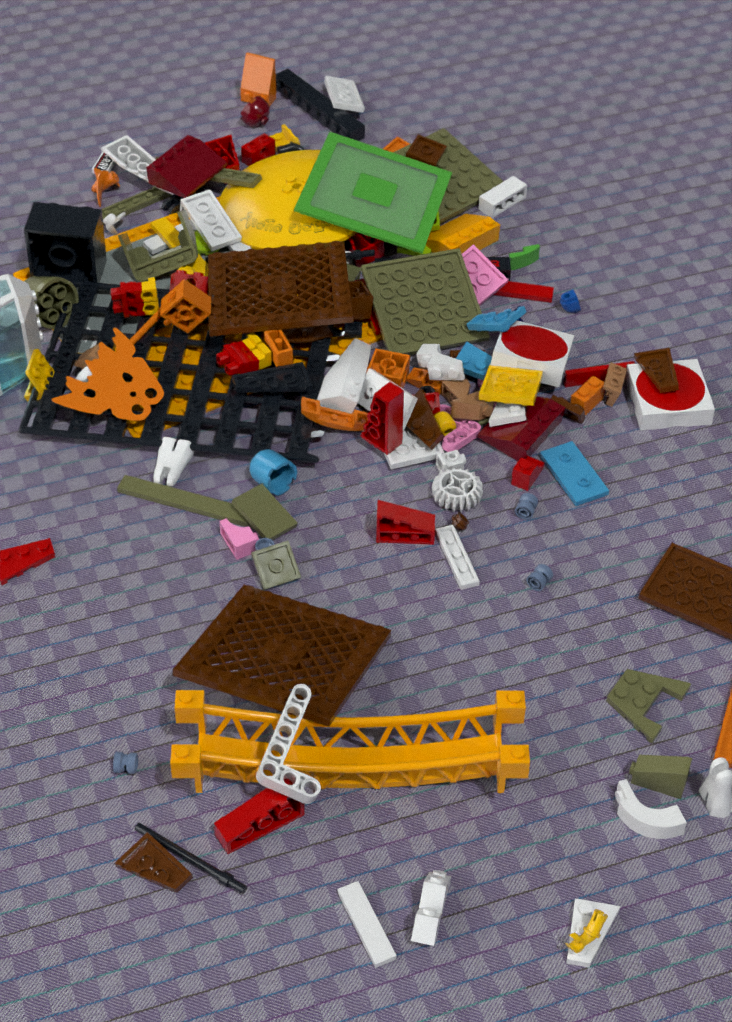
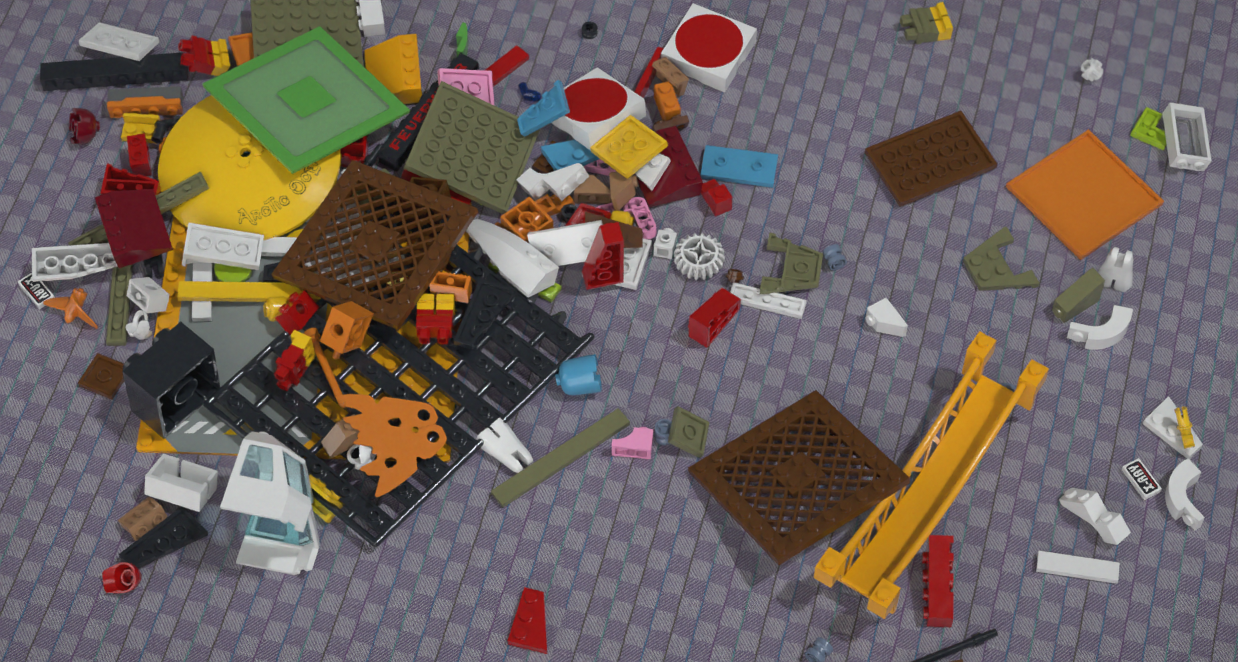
camera: 55 degrees left, 10 degrees up
(51, 295) = (217, 435): olive cone -> none
(141, 209) = (147, 295): none -> white brick
(146, 267) = (242, 310): olive windscreen -> none
(258, 78) = (44, 96): orange slope -> none
(264, 512) = (622, 408): olive tile -> none
(282, 745) = (915, 523): white beam -> none
(304, 128) = (145, 101): none -> orange piece
(333, 418) = (556, 292): orange slope -> none
(371, 131) = (204, 55): none -> red hips
(426, 150) = (276, 27): reddish brown tile -> none
(503, 561) = (800, 269): none -> olive wing
(507, 930) = (1141, 479): none -> tile
(508, 642) = (886, 319): none -> white slope
(516, 964) = (1176, 499): none -> white arch
(526, 506) = (754, 220): sand blue wheel -> none
(570, 302) = (547, 44): blue piece -> none
(613, 320) = (589, 25): none -> black bush
(659, 368) = (688, 34): reddish brown wing -> none

